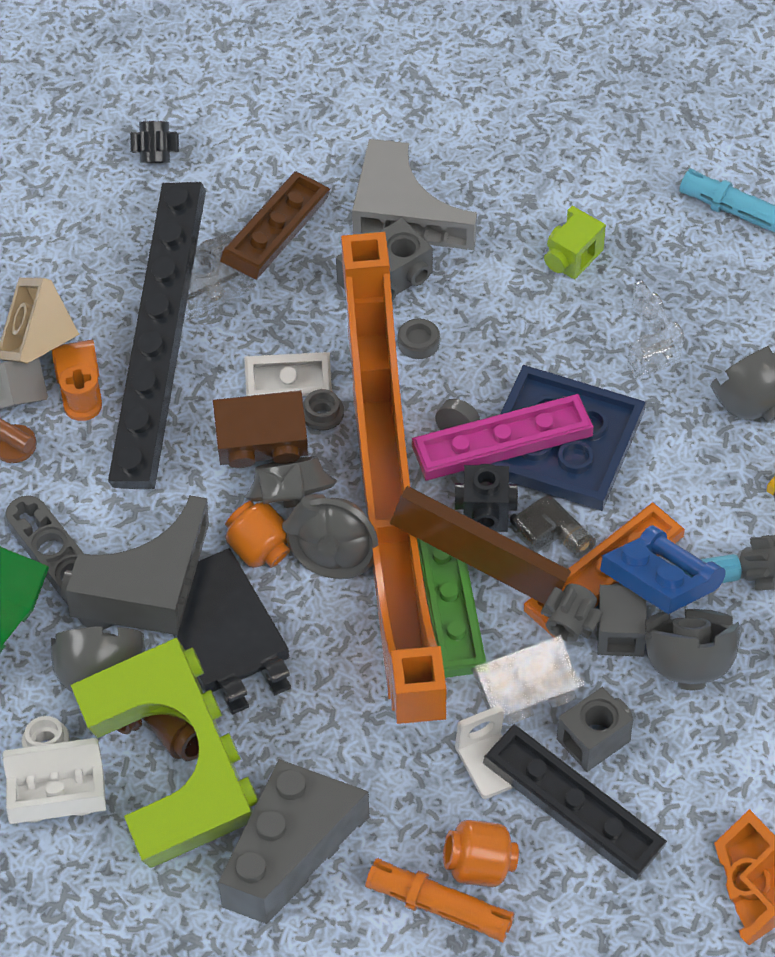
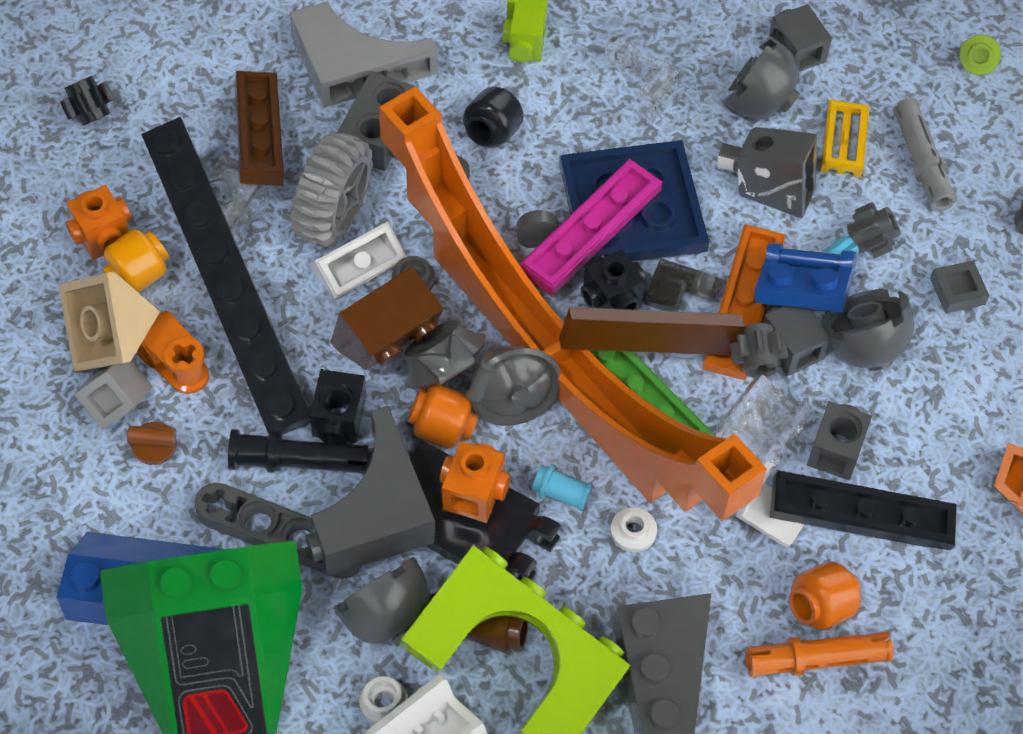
camera: 35 degrees left, 5 degrees up
(92, 244) = (97, 220): none -> orange brick
(99, 289) = (137, 259): none -> light orange head
(102, 497) = (274, 452): none -> black pin
(180, 471) = (338, 391): none -> black brick
(236, 596) = (474, 480): none -> orange brick
(295, 301) = (331, 188): none -> light grey gear
(313, 637) = (561, 487): none -> medium azure pin
(355, 723) = (629, 540): none -> white plate
(487, 306) = (493, 117): none -> black head
(711, 465) = (774, 168): none -> dark grey torso

